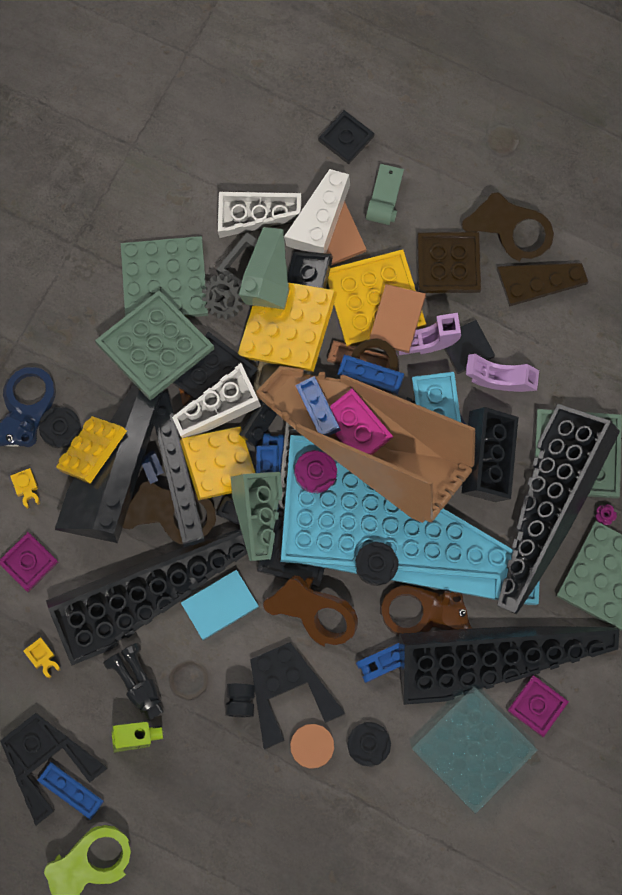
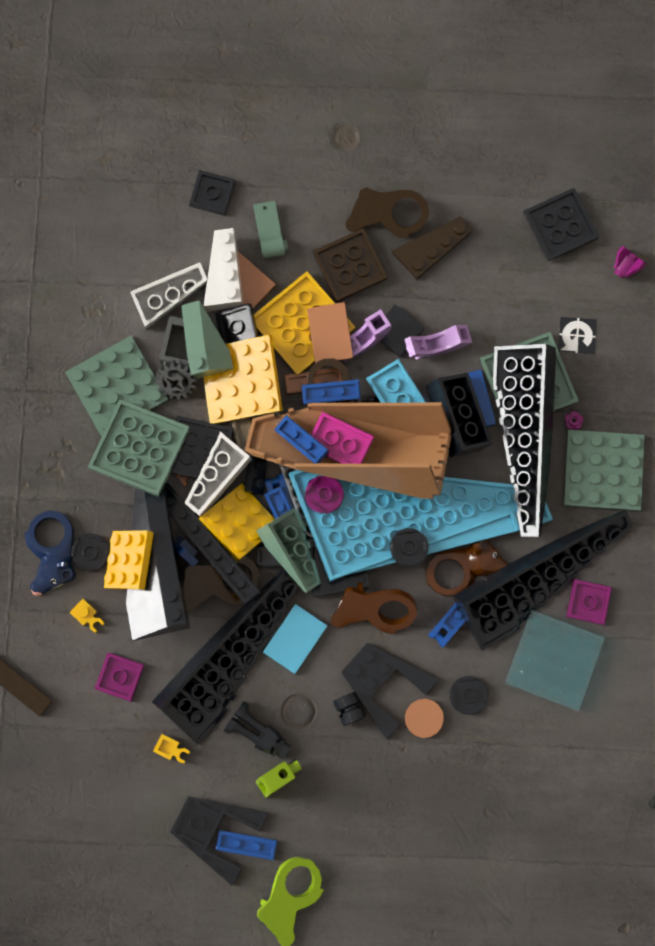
camera: 25 degrees left, 5 degrees up
(523, 442) = (482, 396): none -> blue tile

